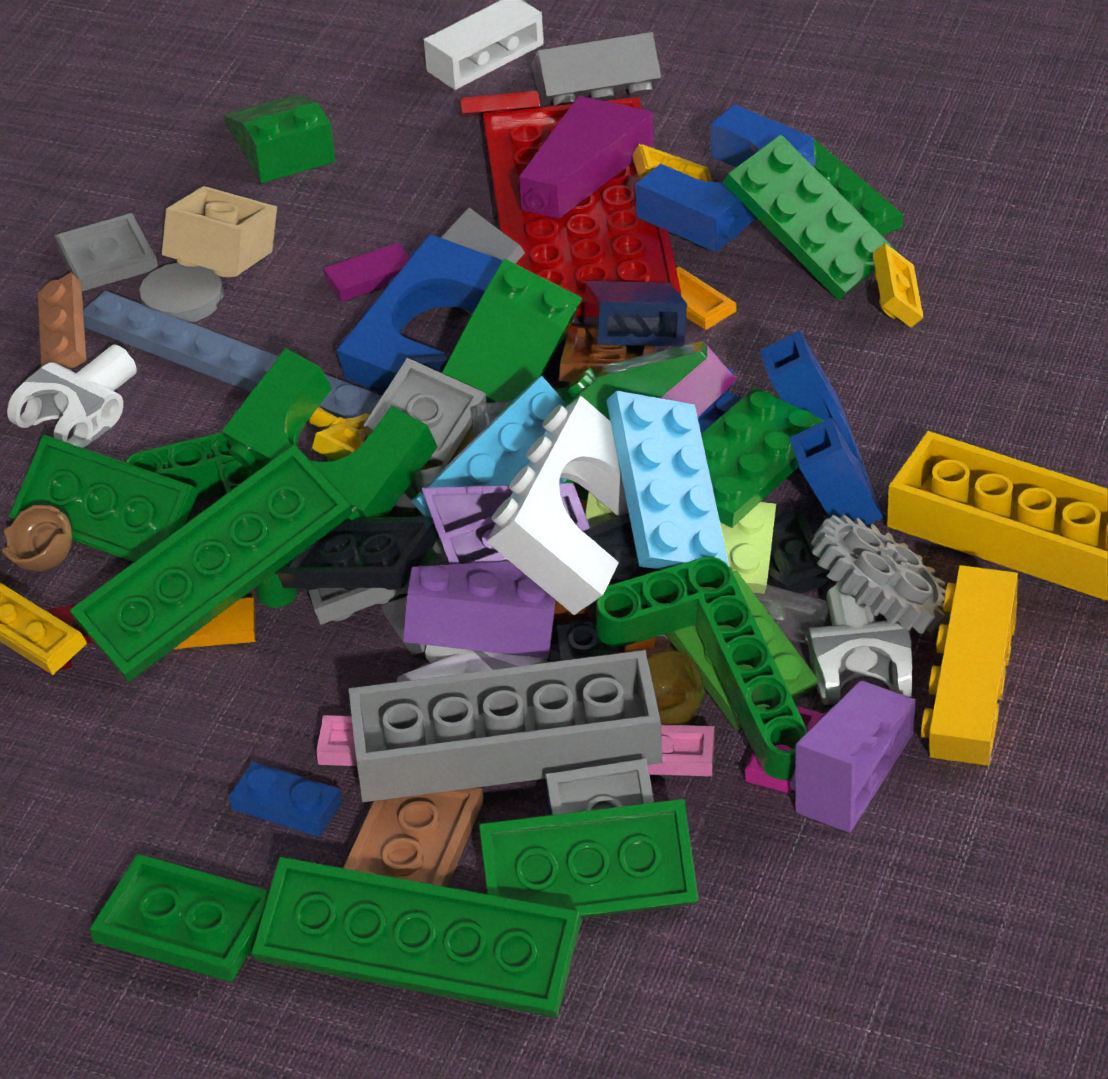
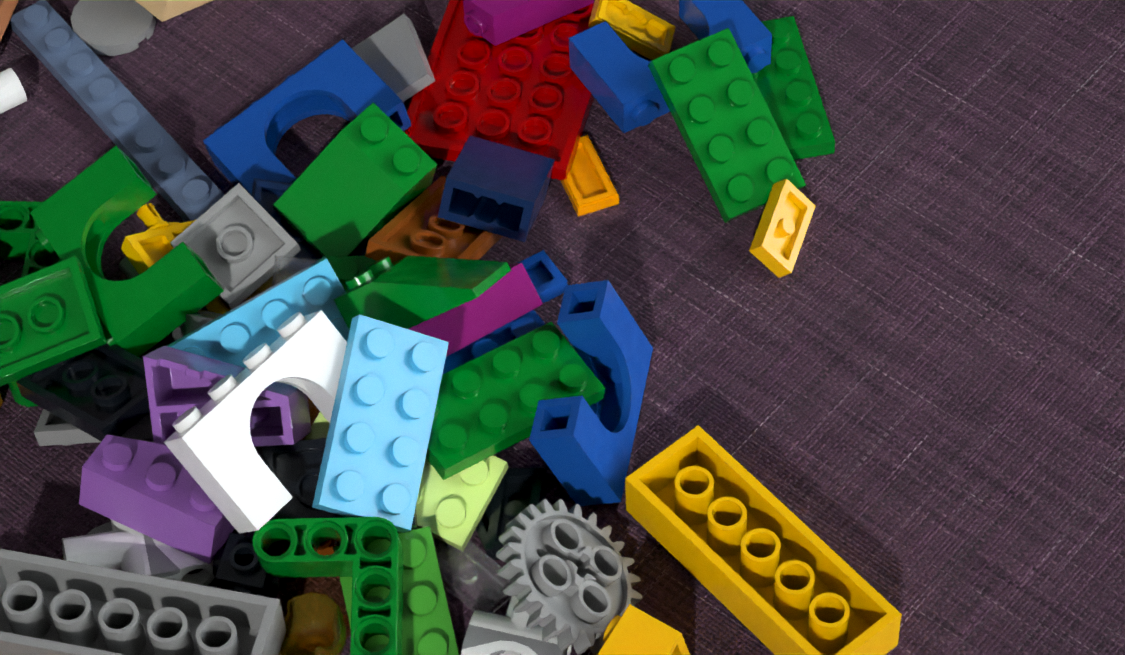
camera: 20 degrees right, 10 degrees up
(366, 272) = (290, 48): magenta tile -> none

